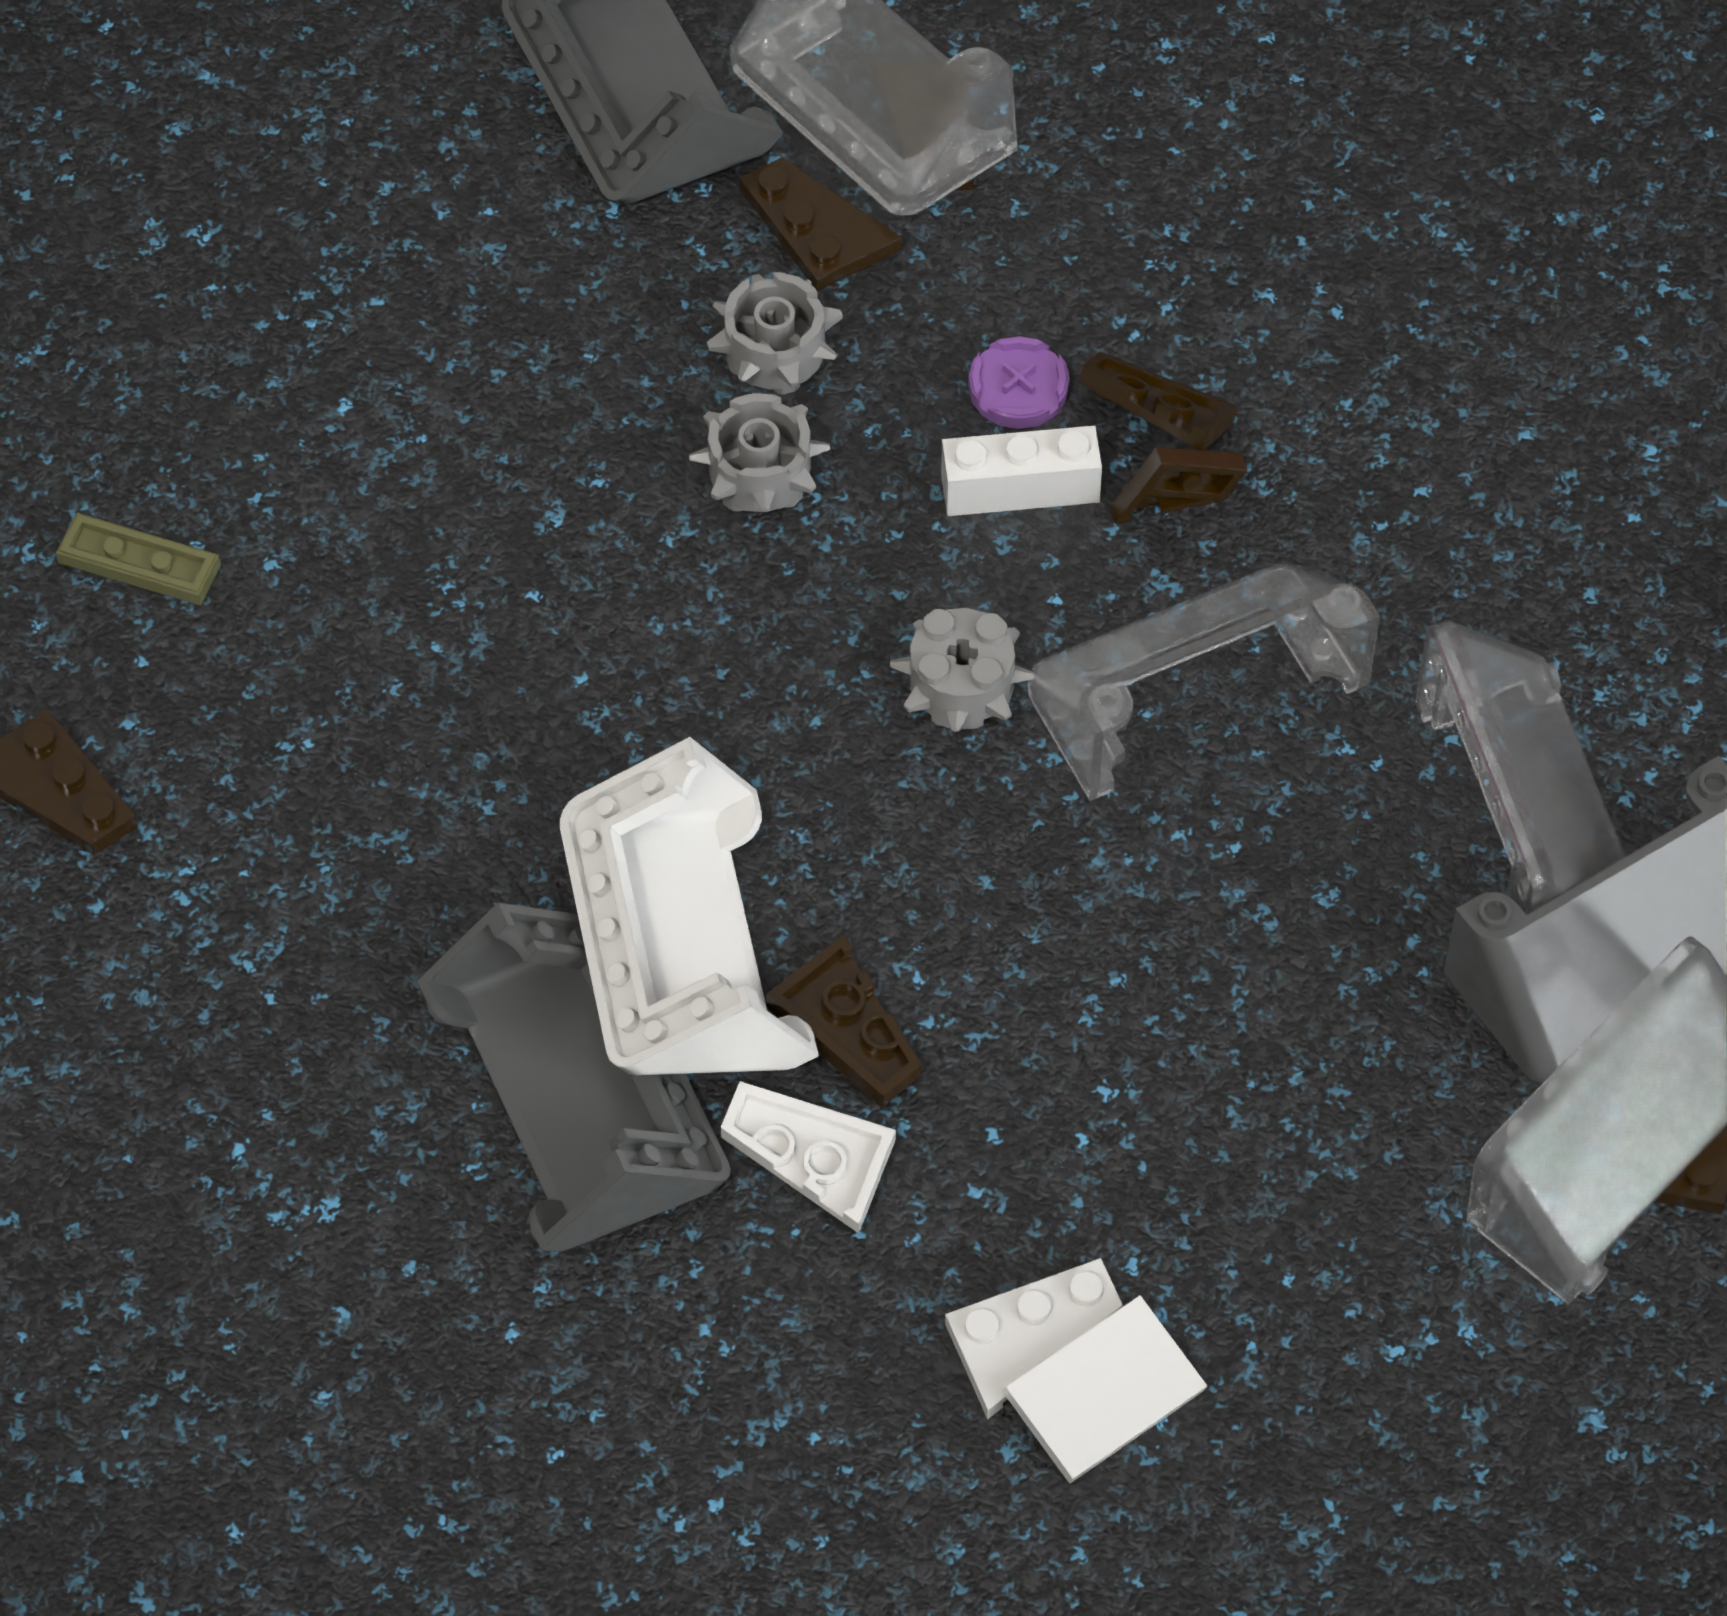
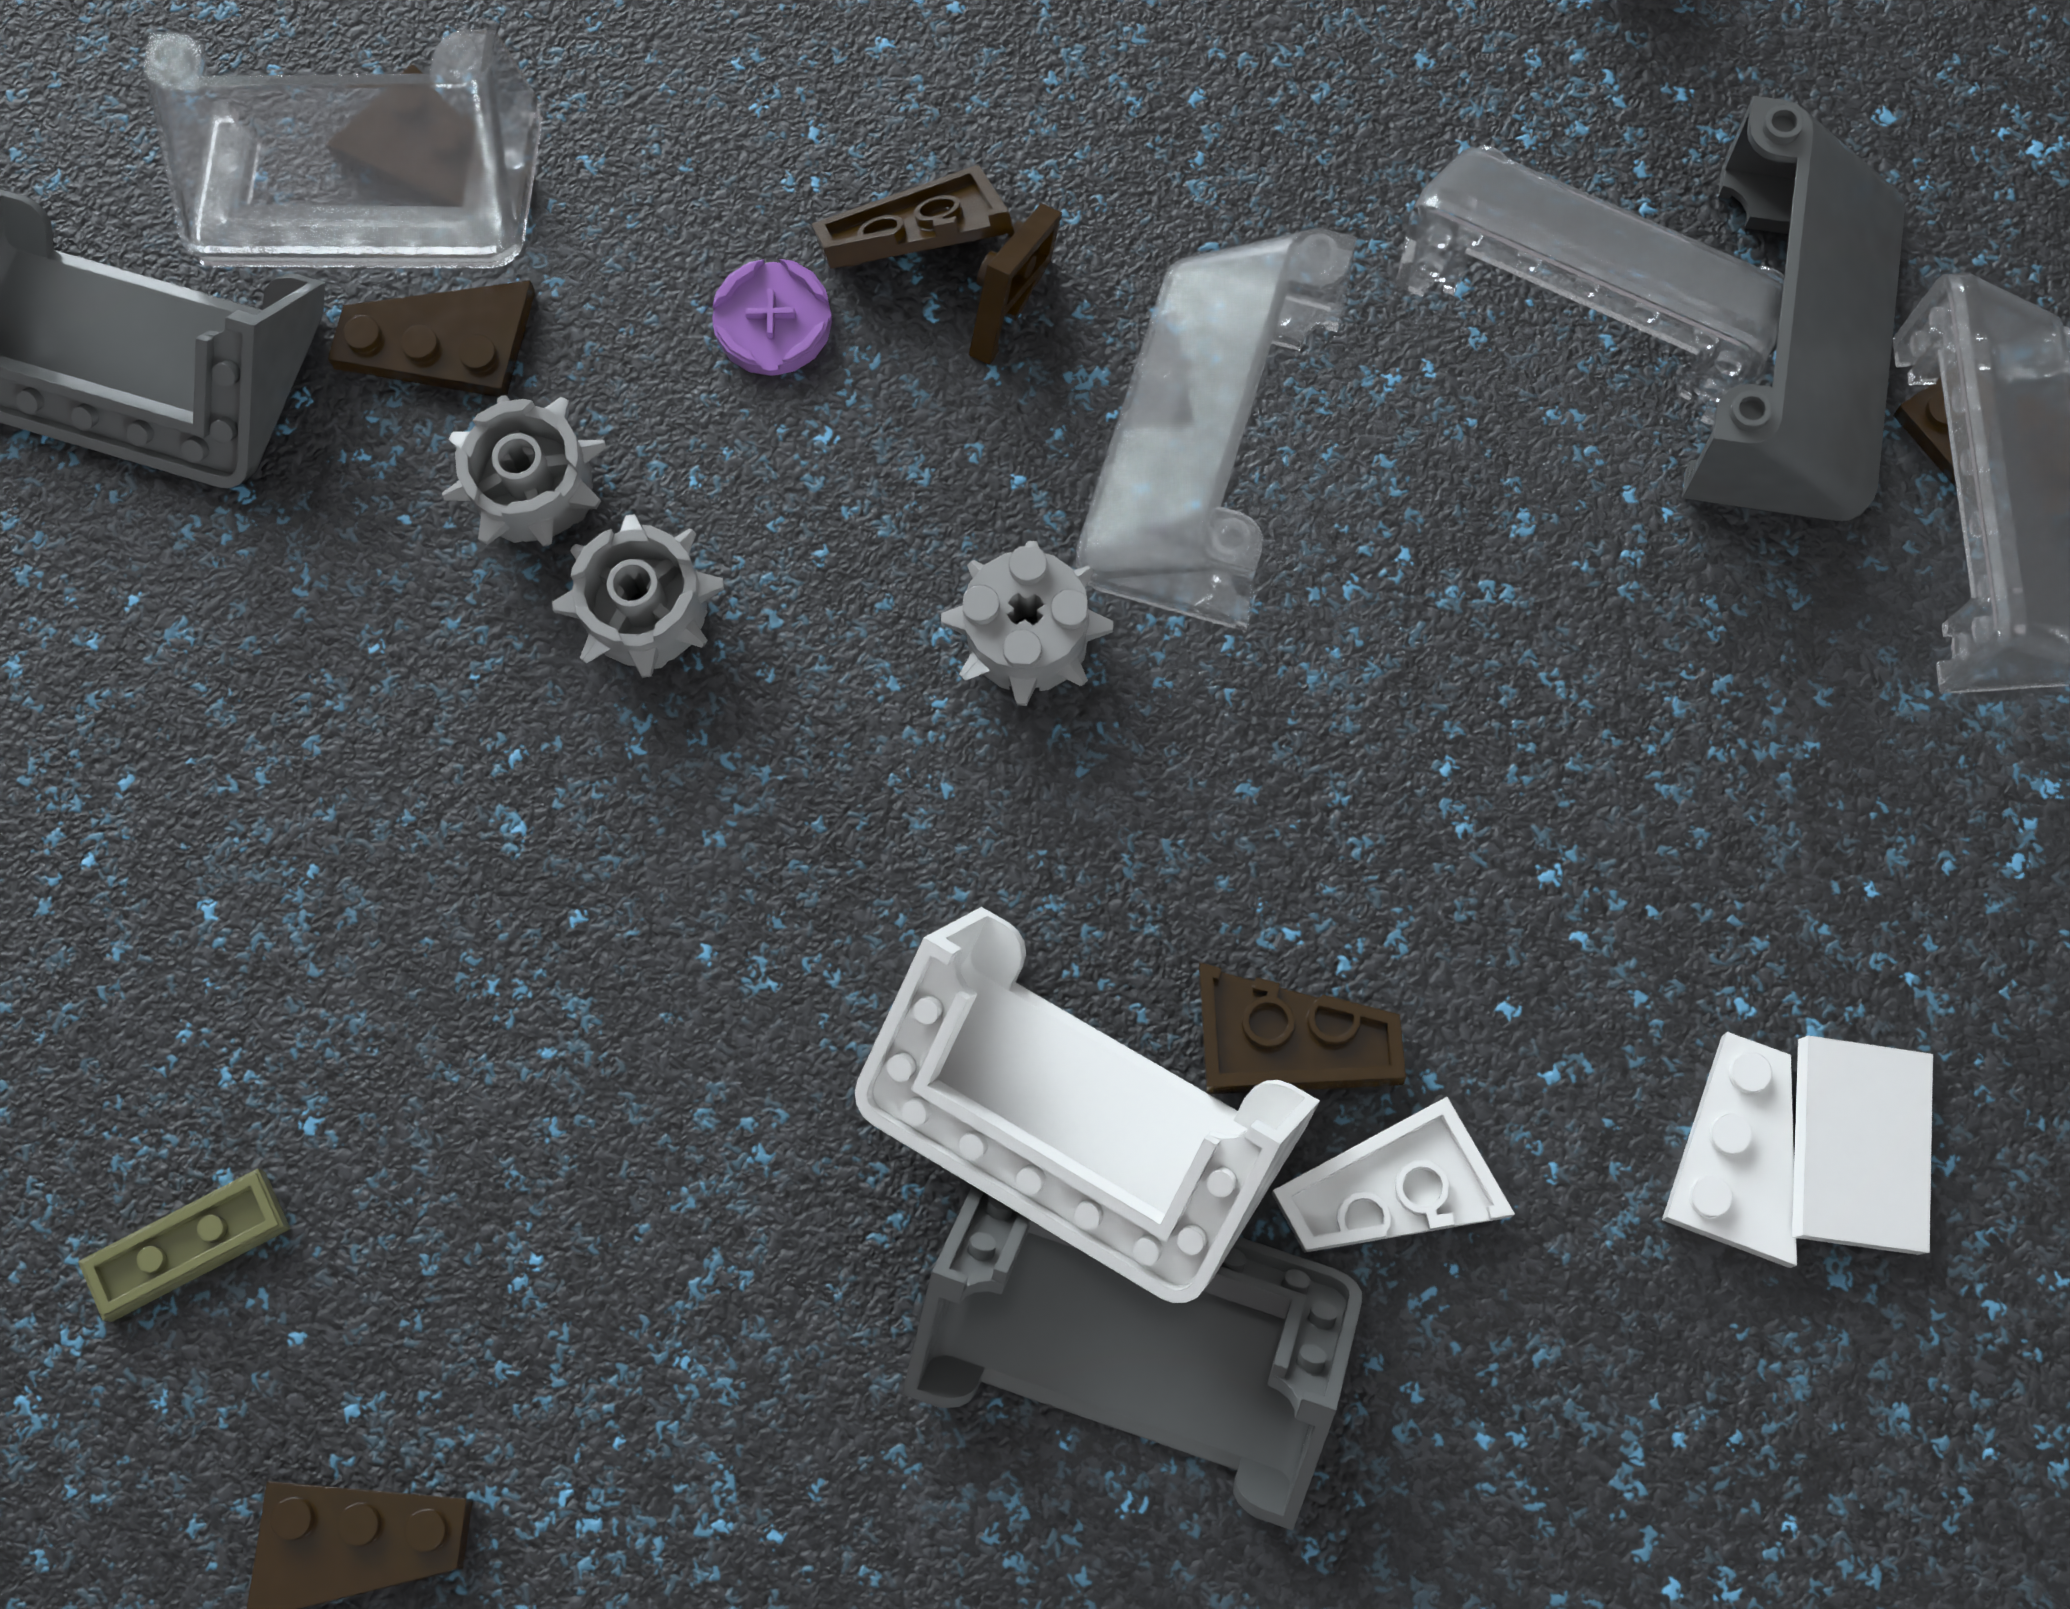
camera: 40 degrees left, 15 degrees up
(1021, 470) = (872, 394): white brick -> none

